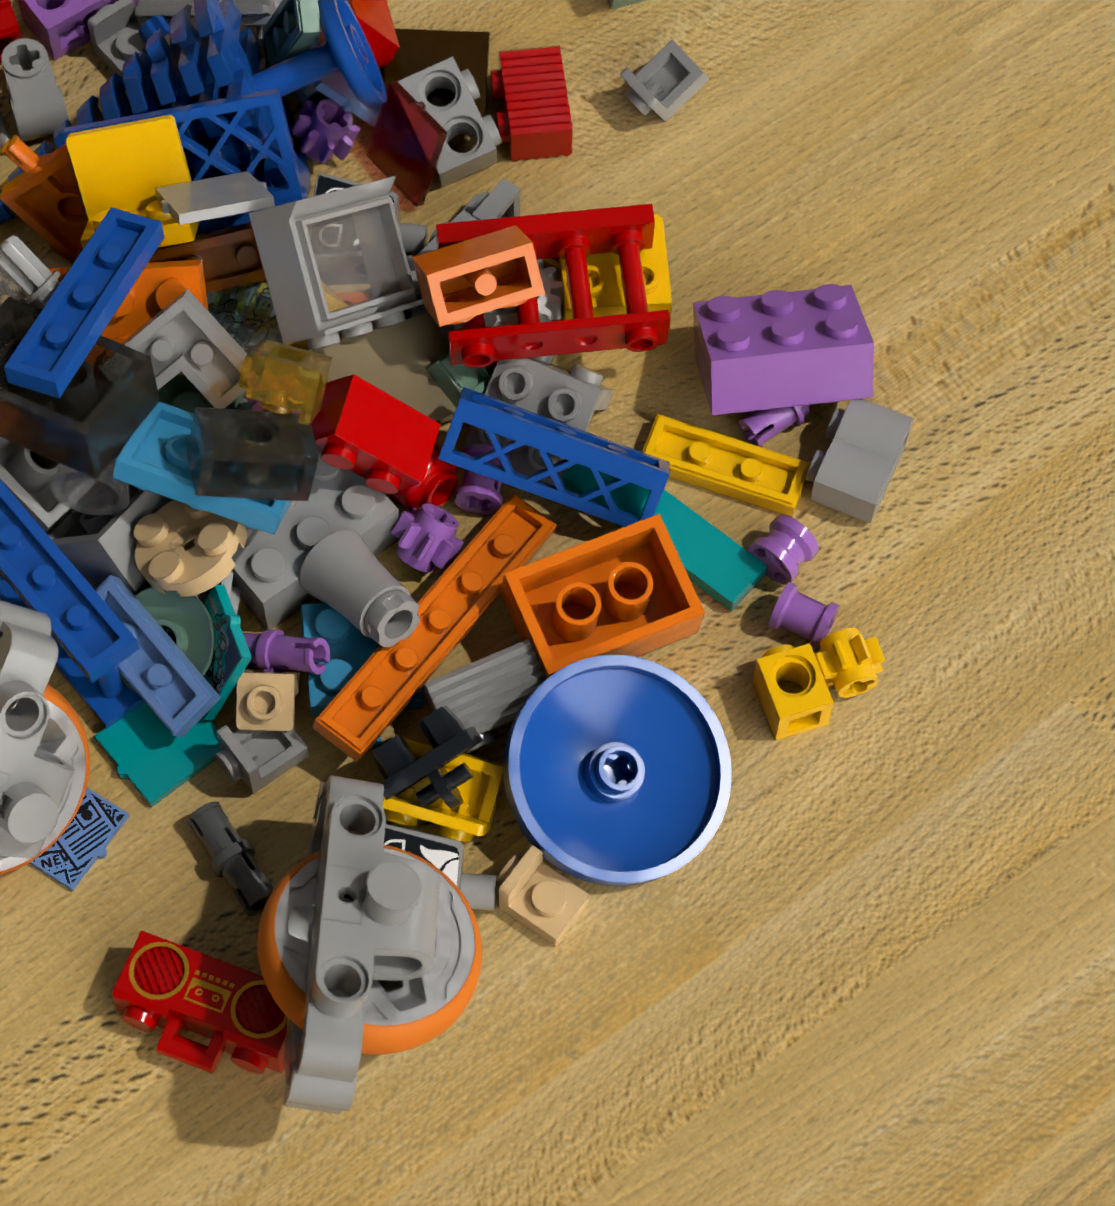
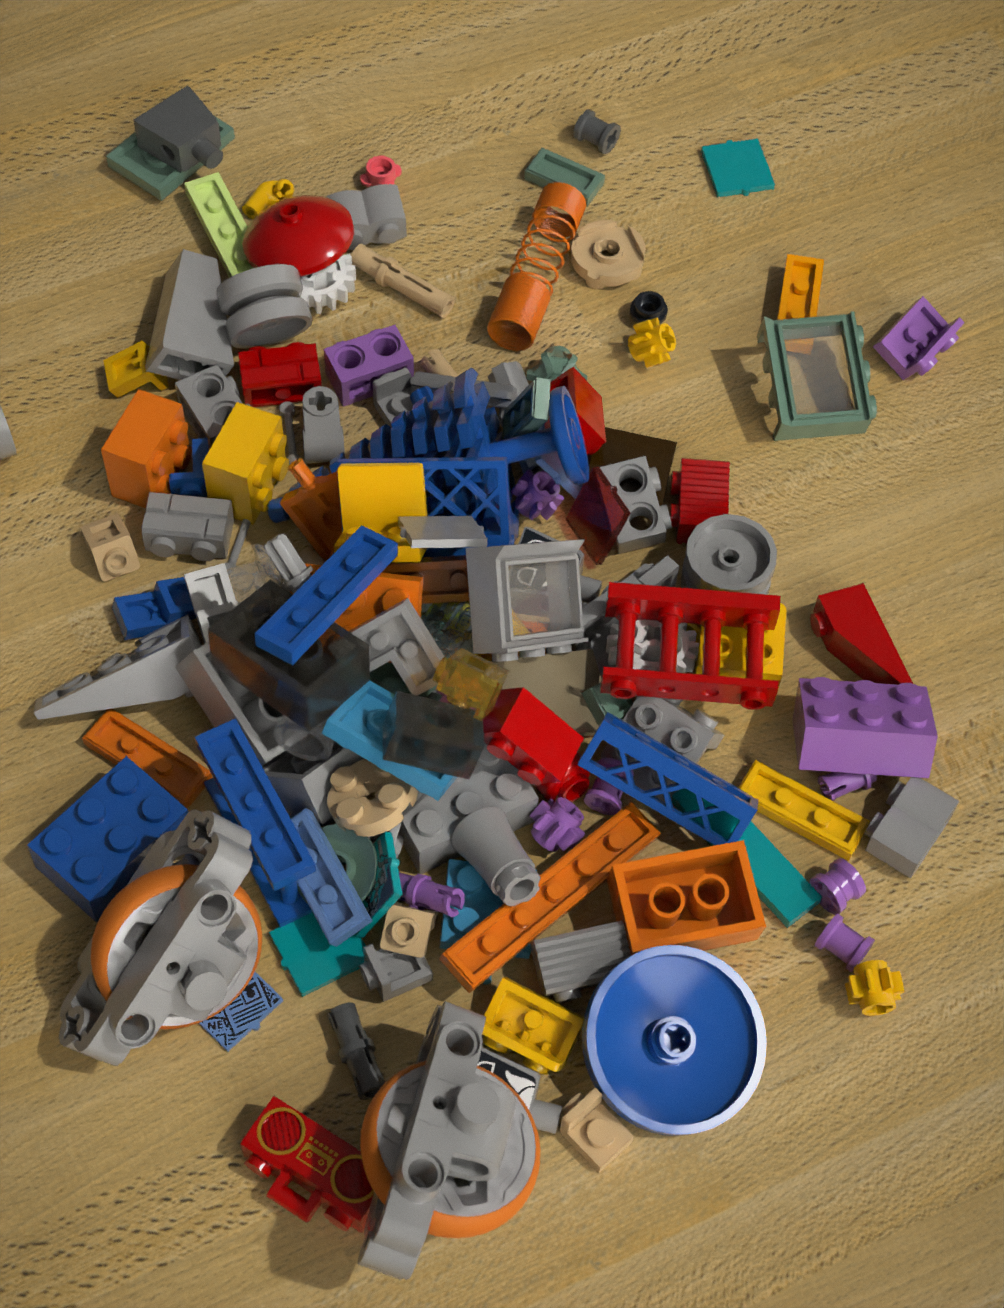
camera: 10 degrees right, 5 degrees down
(448, 741) = (544, 990): black hips -> none
(478, 276) = (635, 628): orange brick -> none
(581, 165) = (729, 556): none -> light grey wheel
(664, 82) = (806, 503): light grey bracket -> none
(756, 236) = (857, 635): none -> red slope
(788, 712) = (821, 1019): yellow brick -> none

